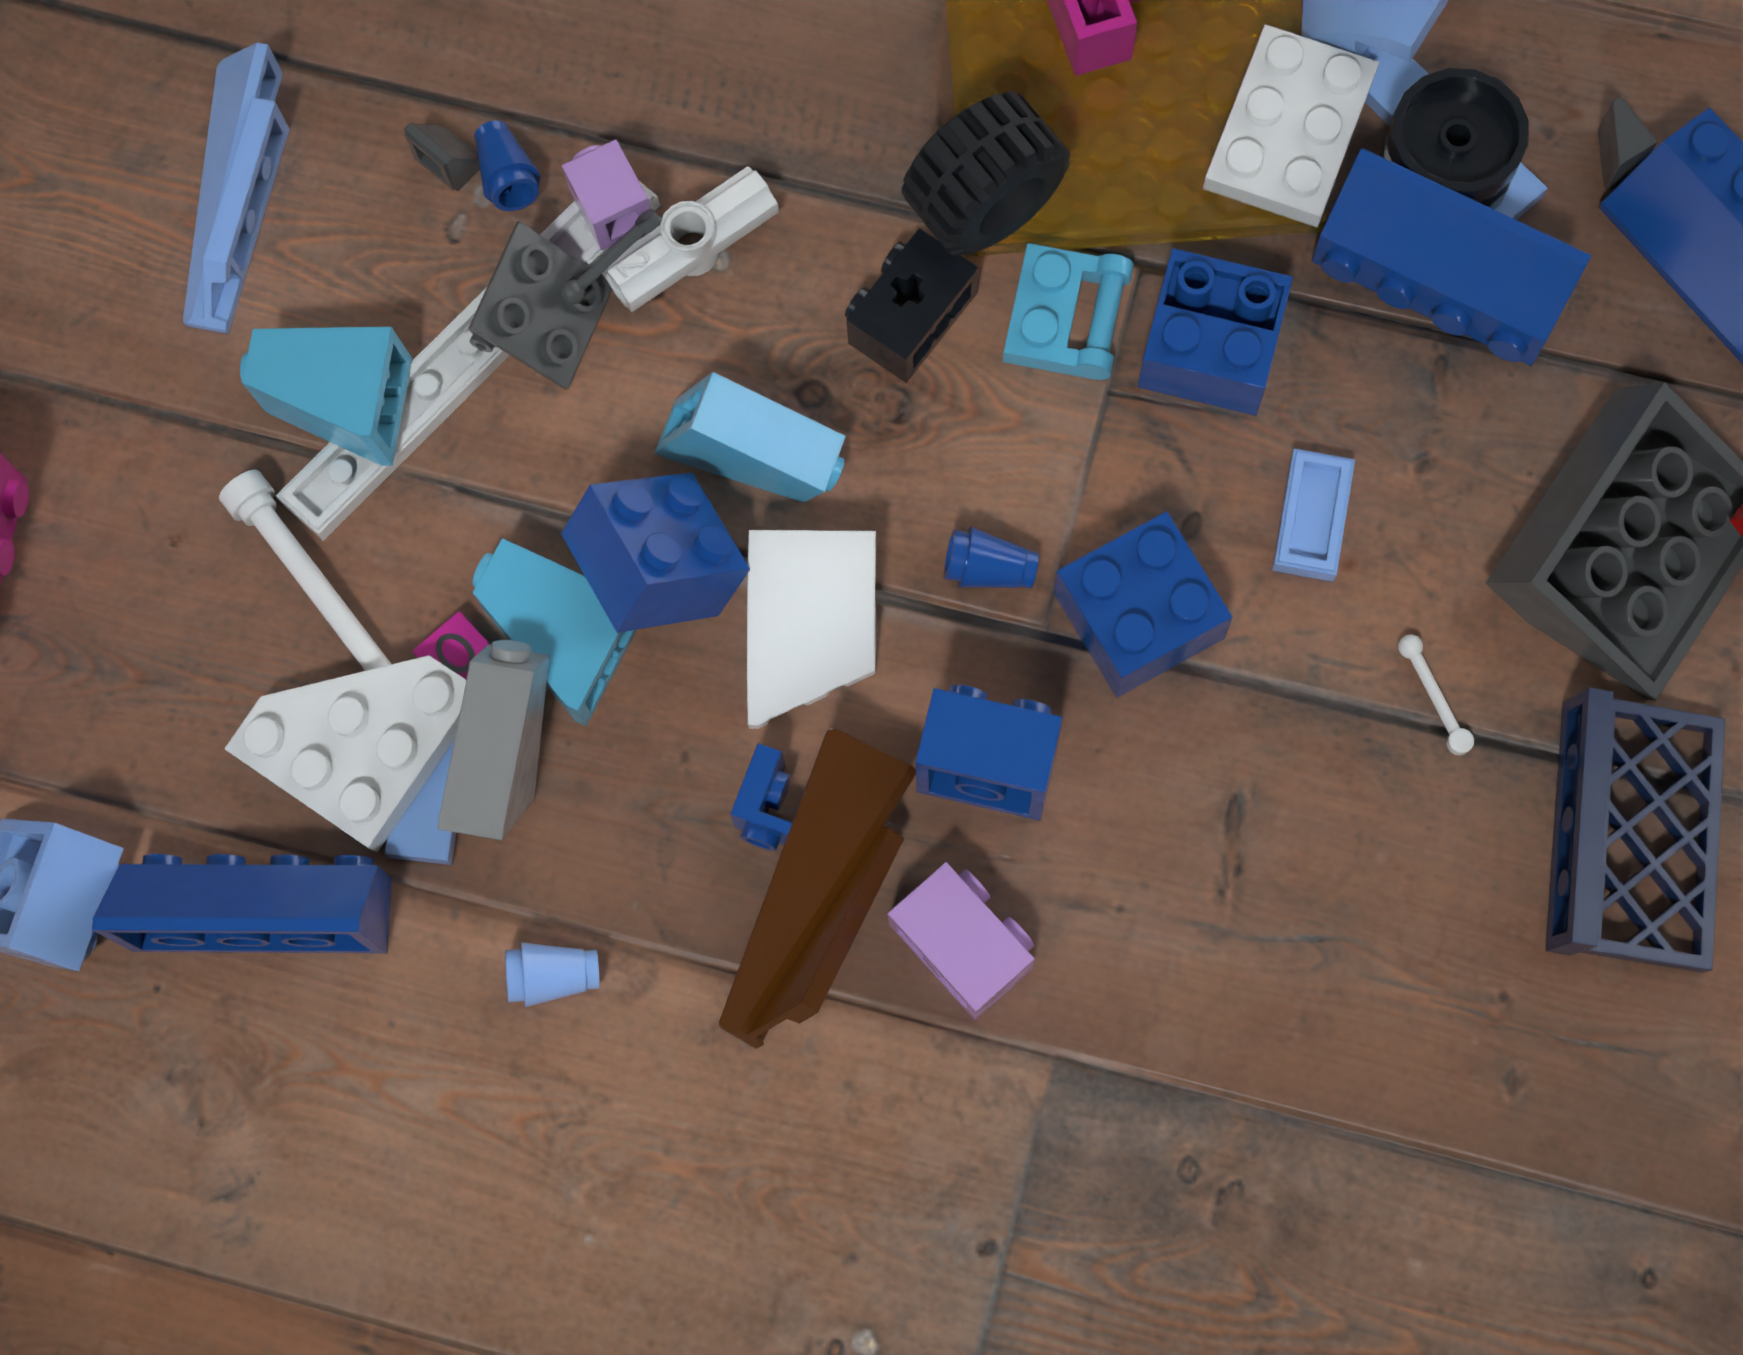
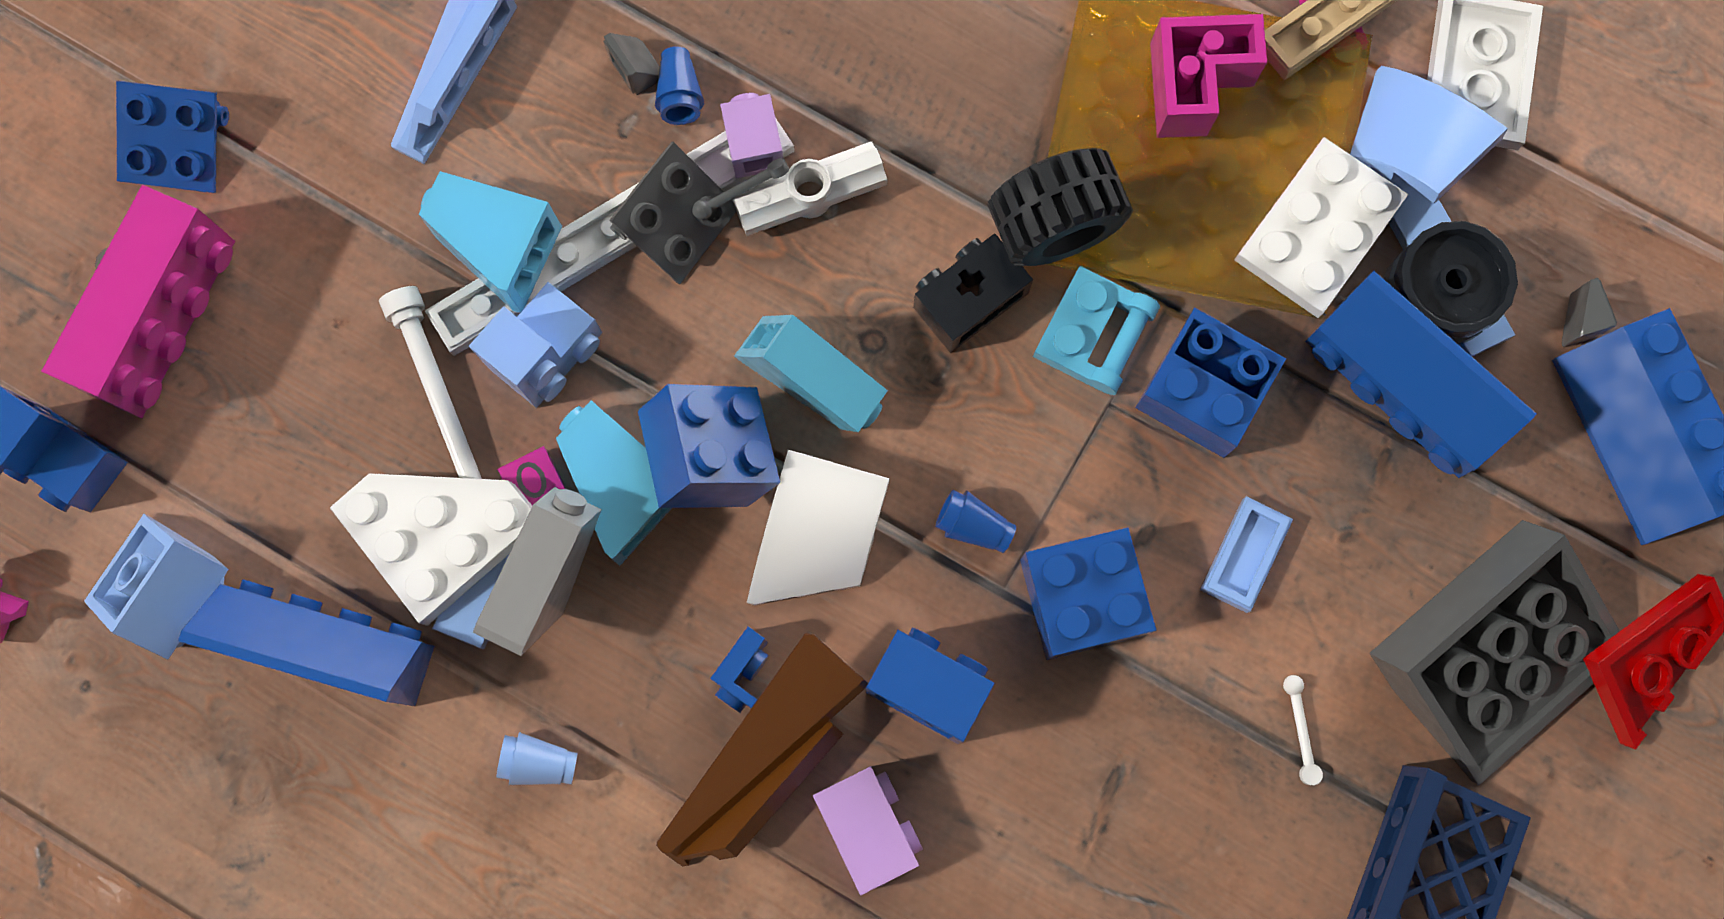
camera: 10 degrees right, 5 degrees up
(421, 496) = (538, 344): none -> light blue brick

